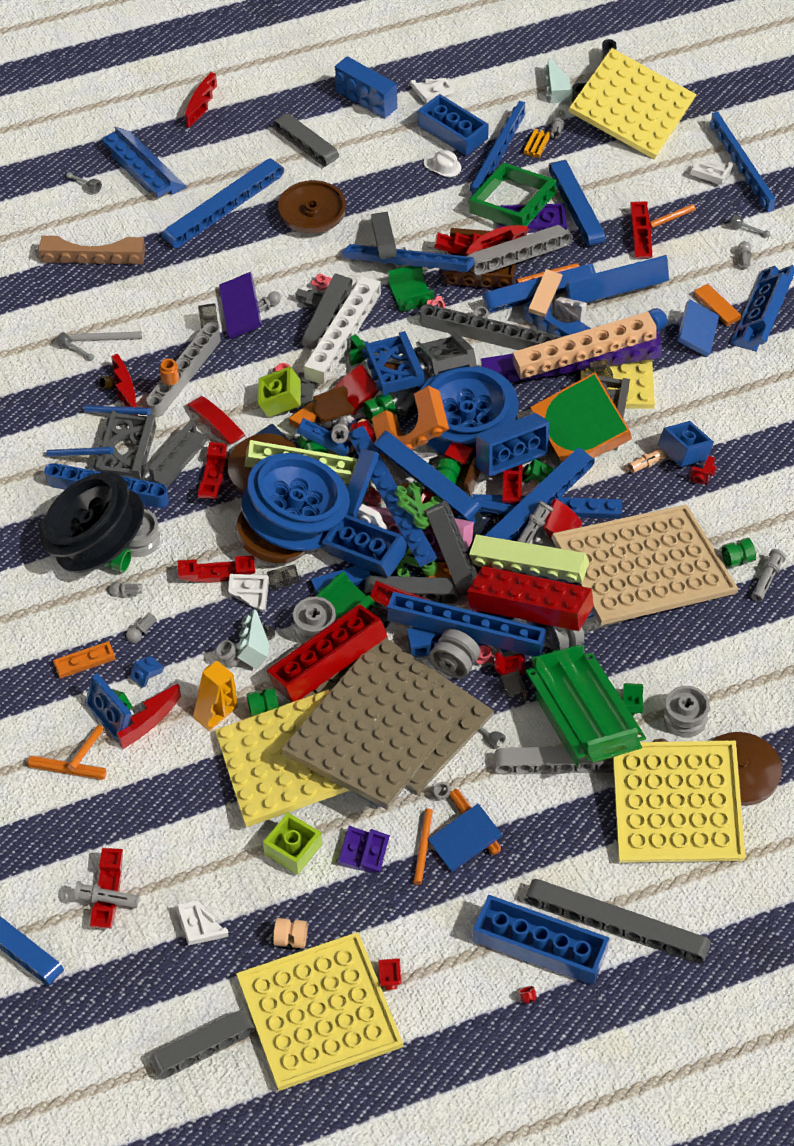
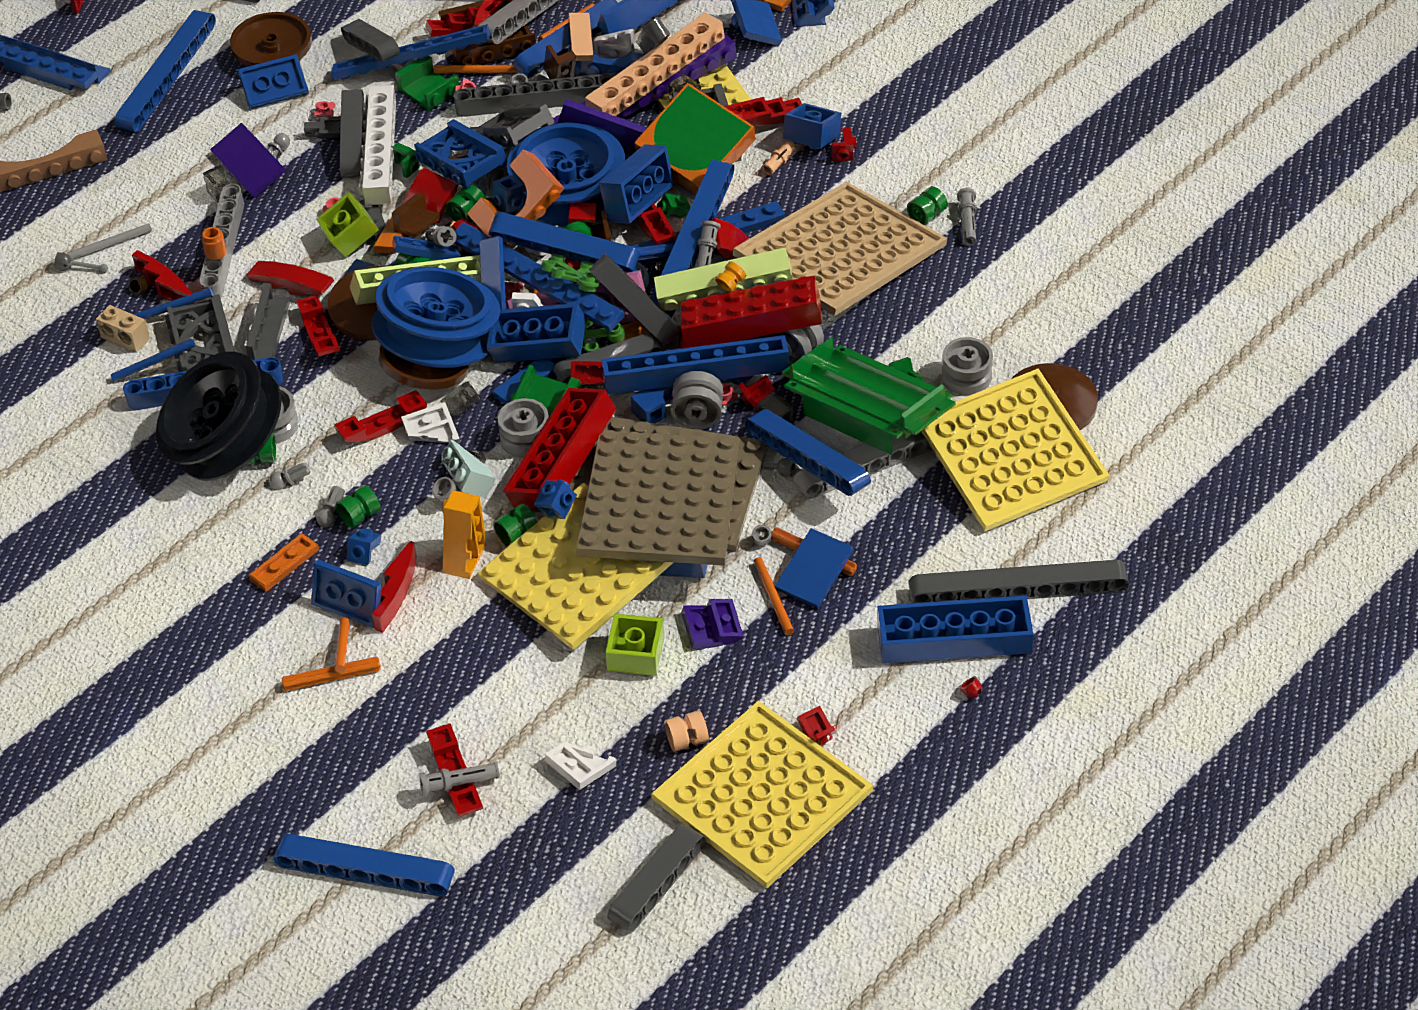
camera: 25 degrees left, 5 degrees down
(74, 415) = (123, 328): none -> tan brick
(158, 637) = (359, 505): none -> green wheel
(294, 243) = (273, 81): none -> blue tile
(295, 697) = (555, 499): none -> blue brick
(408, 414) = (508, 194): none -> blue brick
(478, 297) = (474, 69): none -> orange bar
(512, 736) = (807, 452): none -> blue beam
(516, 314) = (559, 66): none -> reddish brown panel
(526, 392) = (623, 130): none -> dark purple tile
(528, 561) = (732, 274): none -> light orange wheel
(595, 317) = (652, 35): none -> dark grey beam
(652, 415) = (764, 112): none -> red slope

